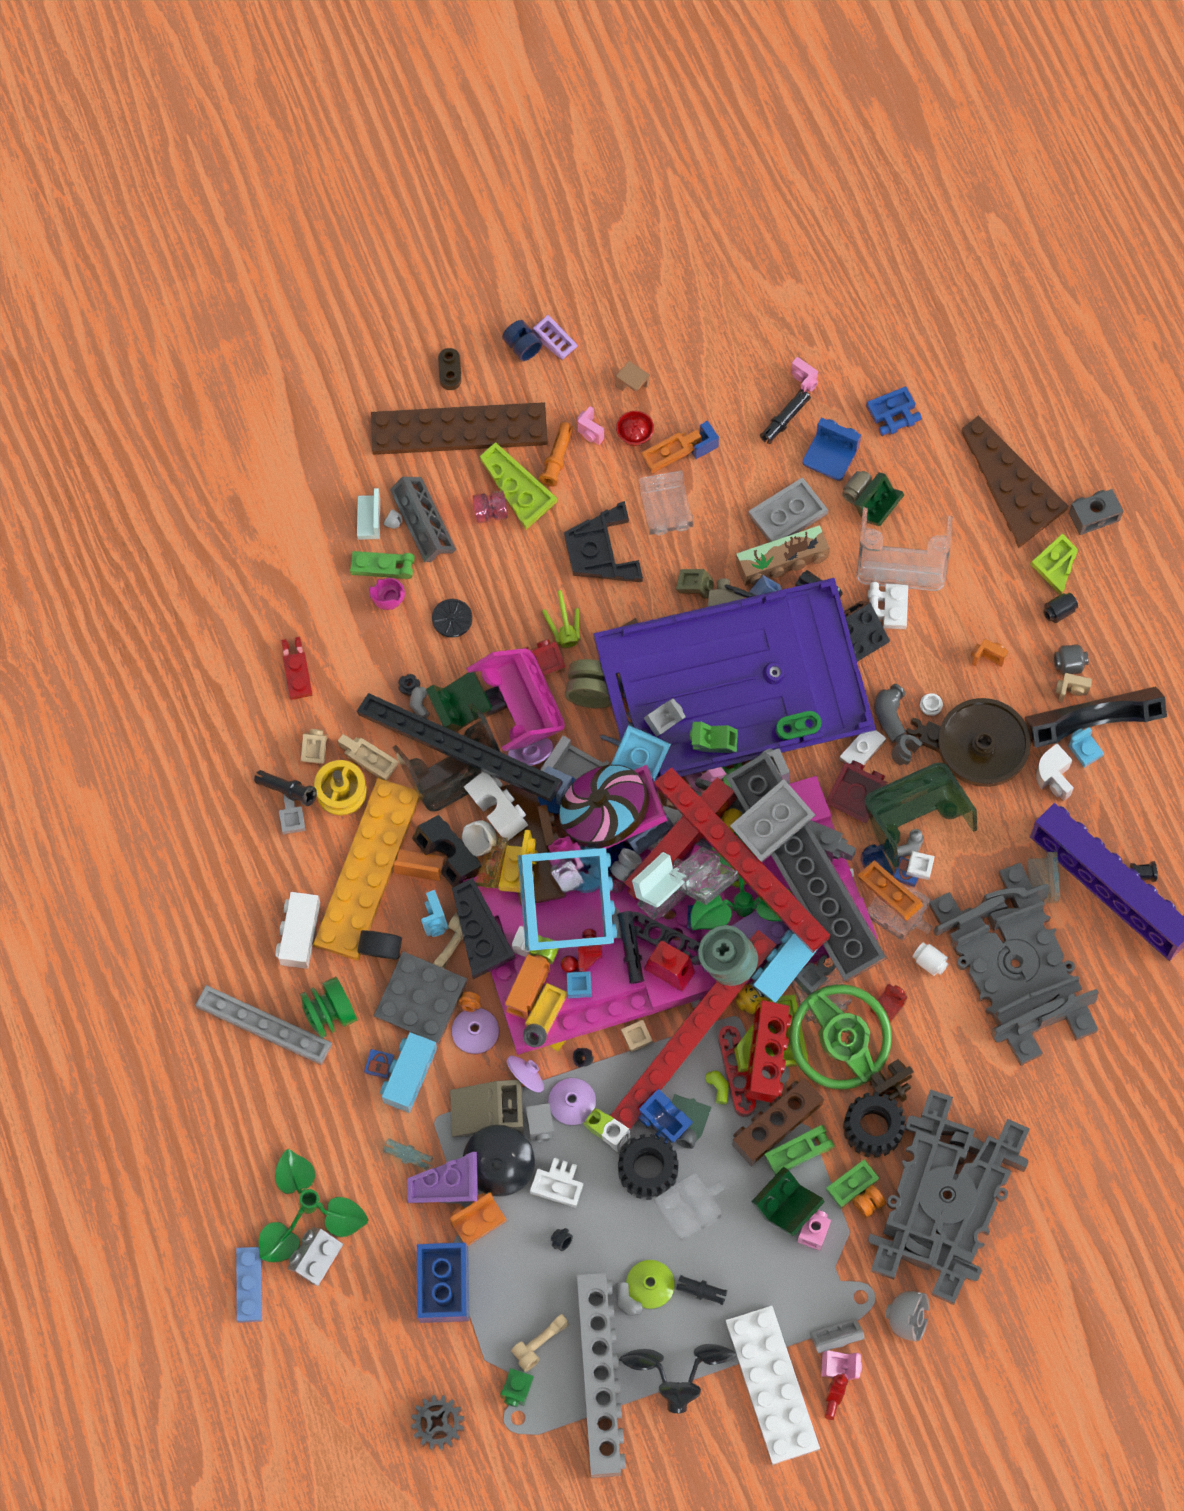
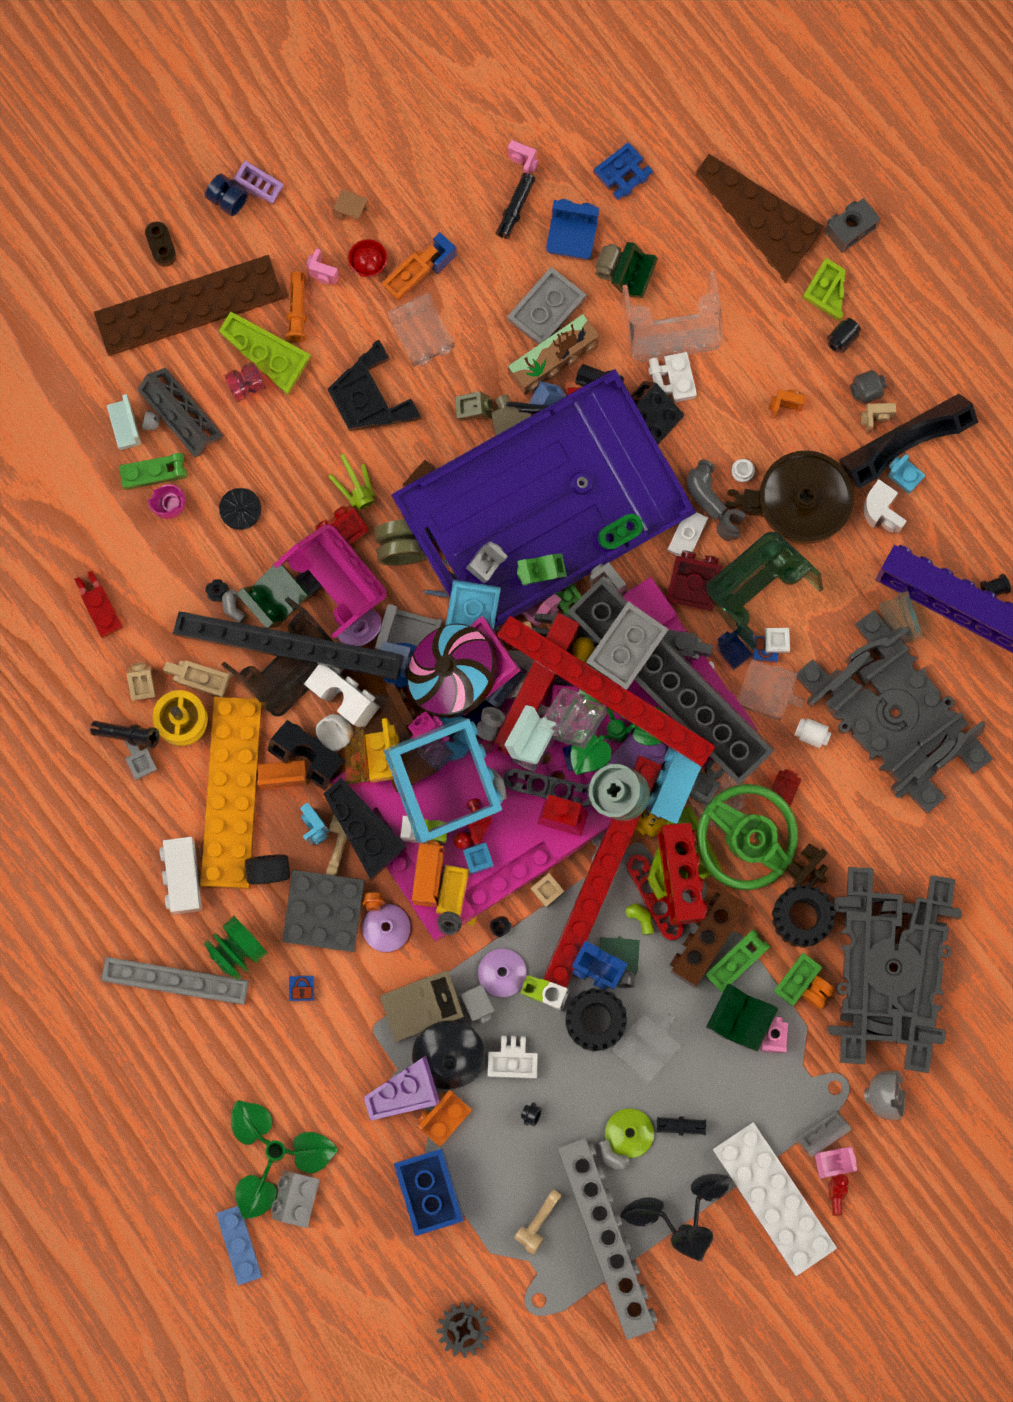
camera: 15 degrees left, 10 degrees up
(408, 1072) = (333, 989): medium azure brick -> none
(408, 1154) = (357, 1072): clear light blue pin -> none
(516, 1388) = (529, 1273): green bracket -> none
(526, 1073) = (450, 960): lavender dish -> none
(630, 946) = (518, 807): black pin -> none
(890, 890) = (756, 676): orange plate -> none
(913, 844) = (764, 619): light grey arm -> none

